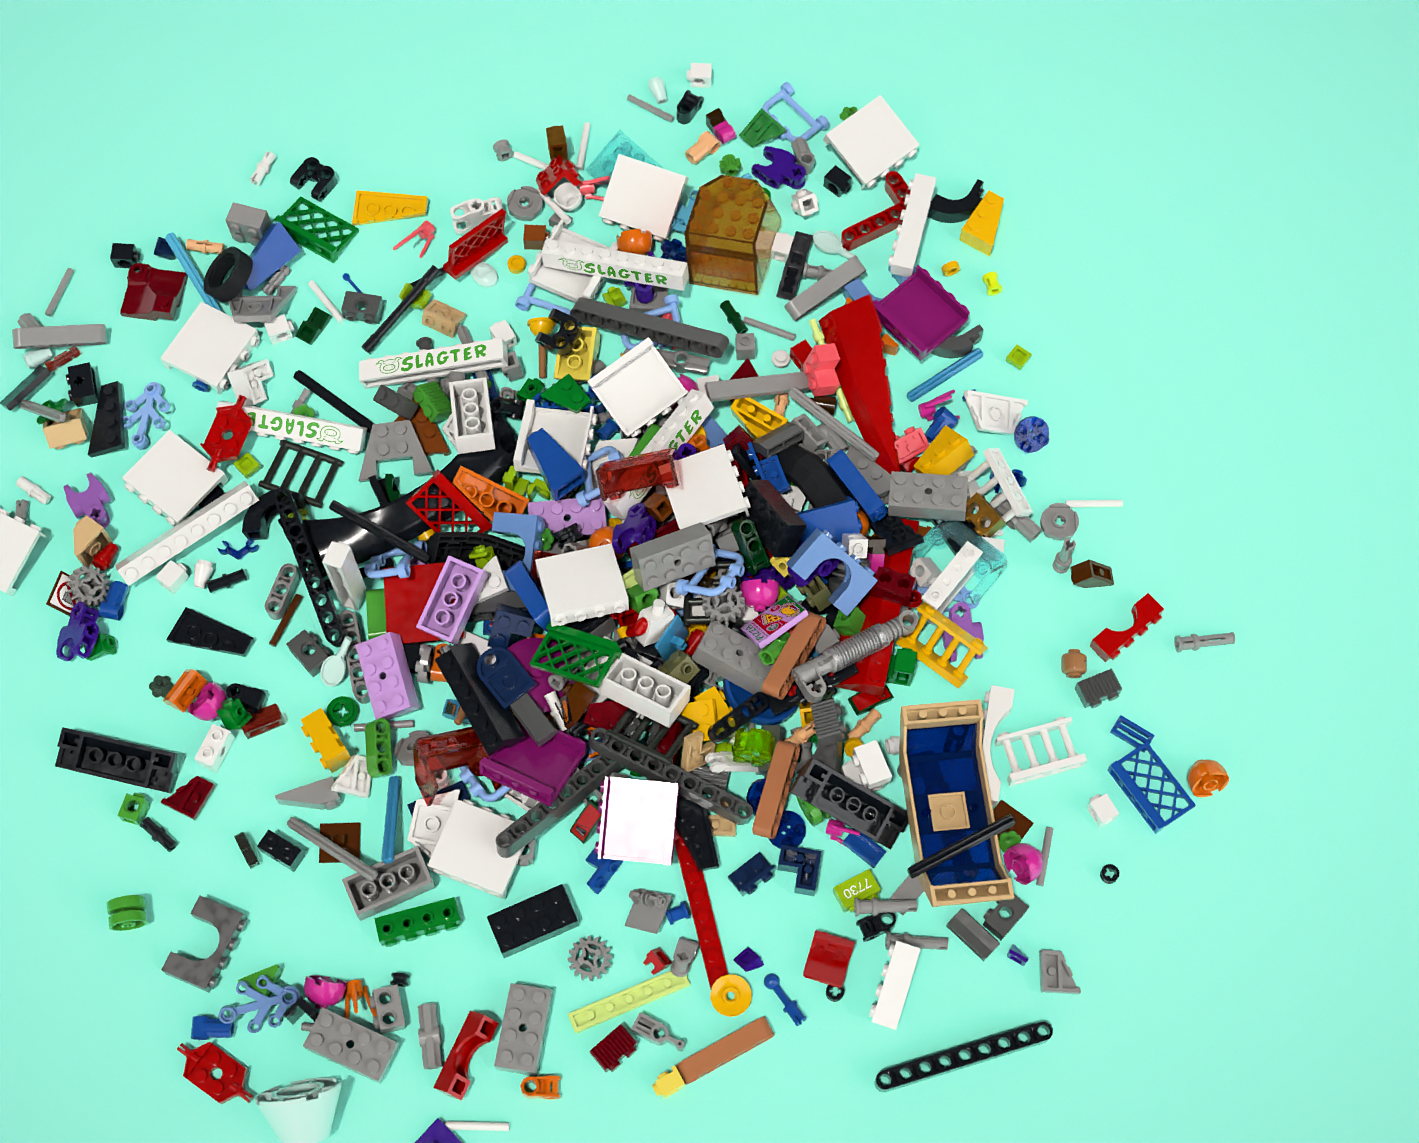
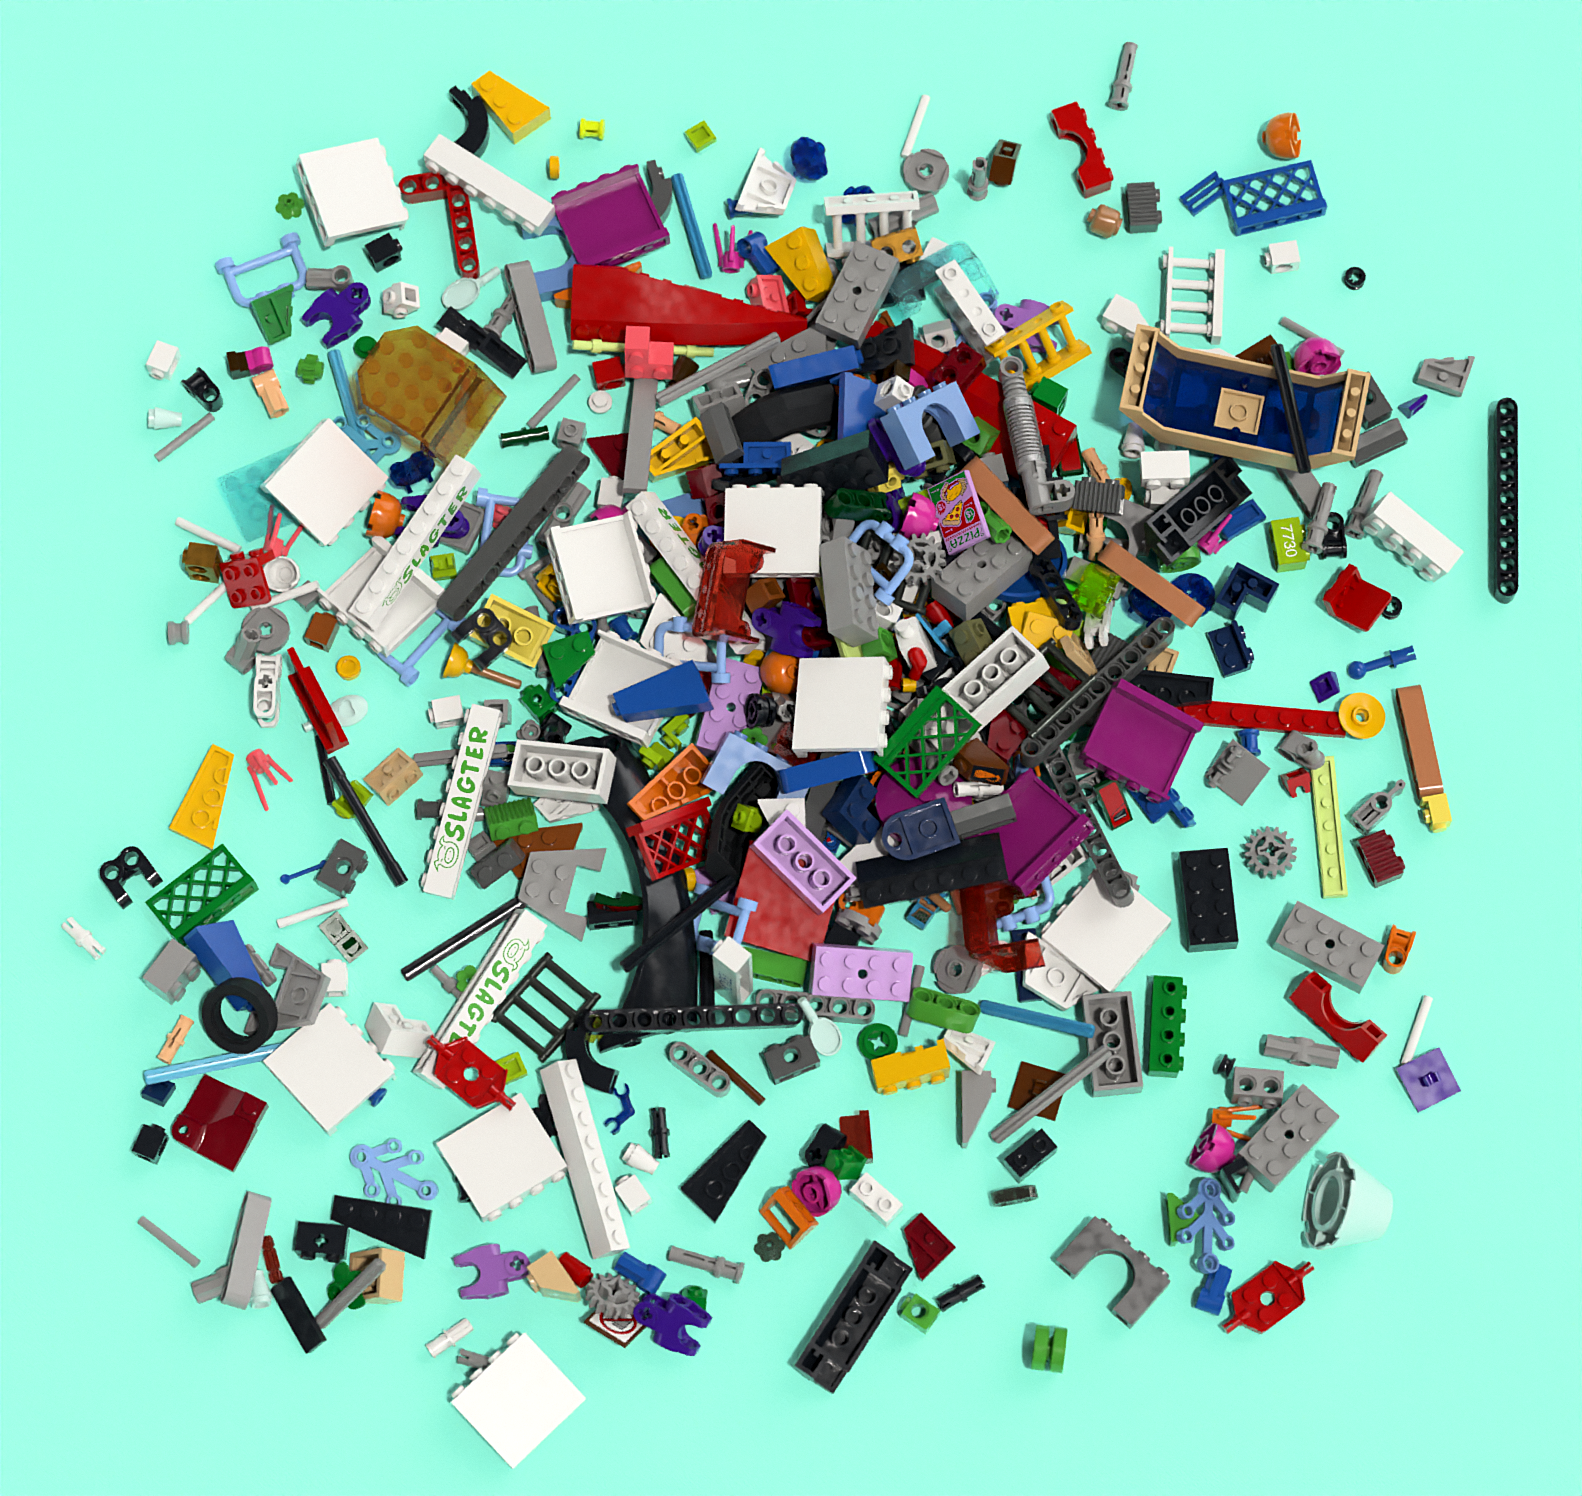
camera: 70 degrees left, 5 degrees up
(134, 654) = (719, 1266): none -> light grey pin
(502, 190) = (242, 653): none -> light grey piece

